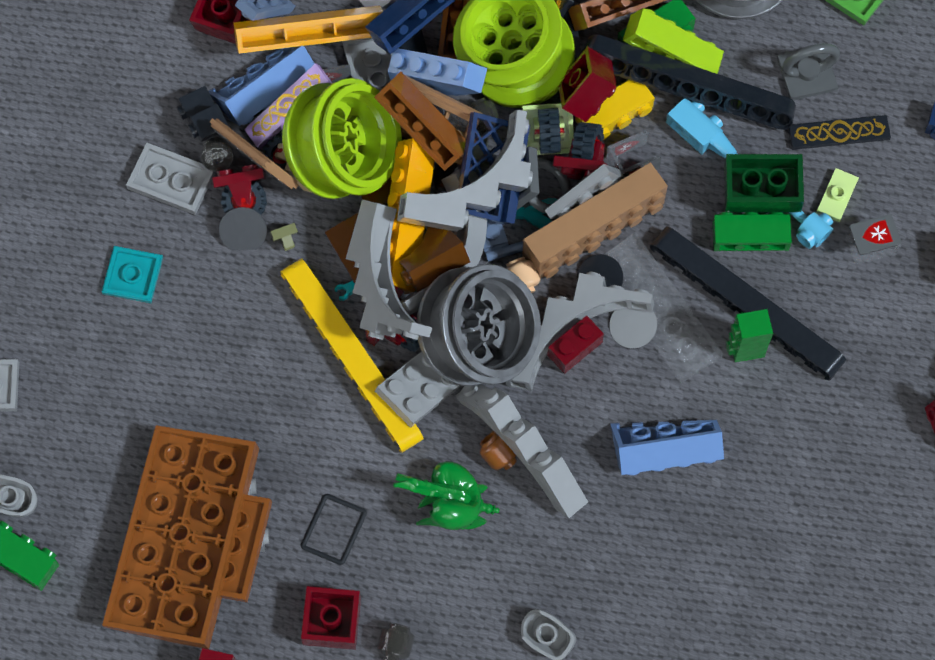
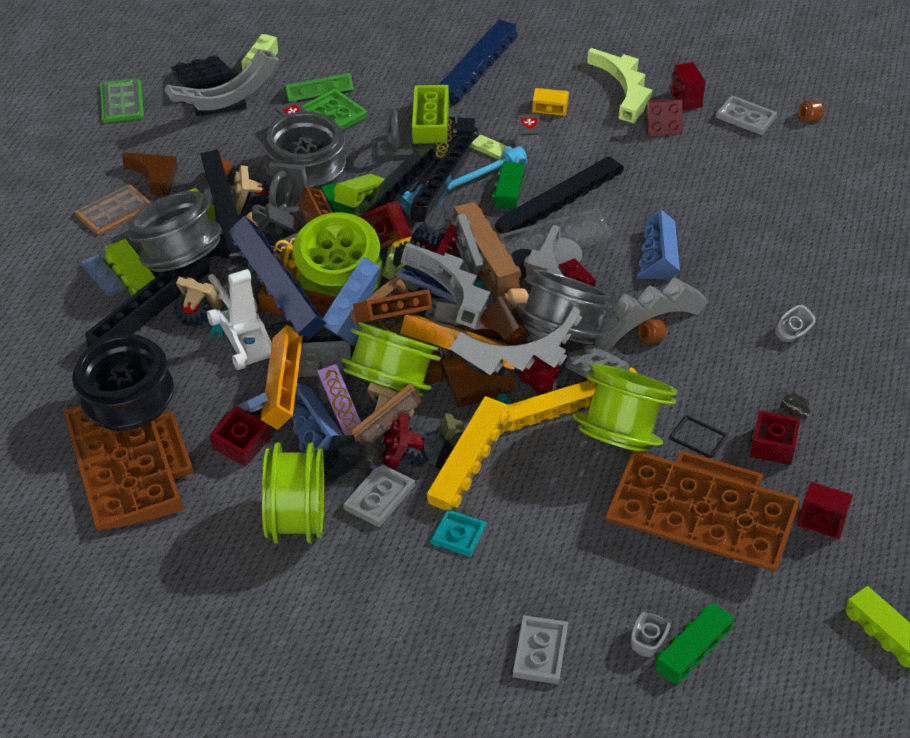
camera: 80 degrees left, 25 degrees down
(115, 80) = (293, 493): none -> lime wheel
(235, 260) = (468, 454): none -> yellow brick
(313, 434) = (624, 408): none -> lime wheel
(453, 496) = (689, 354): green hair -> none
(713, 136) = (440, 178): none -> black beam
(750, 336) = (593, 183): green brick -> none
(764, 182) = (480, 163): dark green brick -> none
(857, 155) = (465, 126): none -> black brick
(875, 102) = (430, 114): none -> lime brick

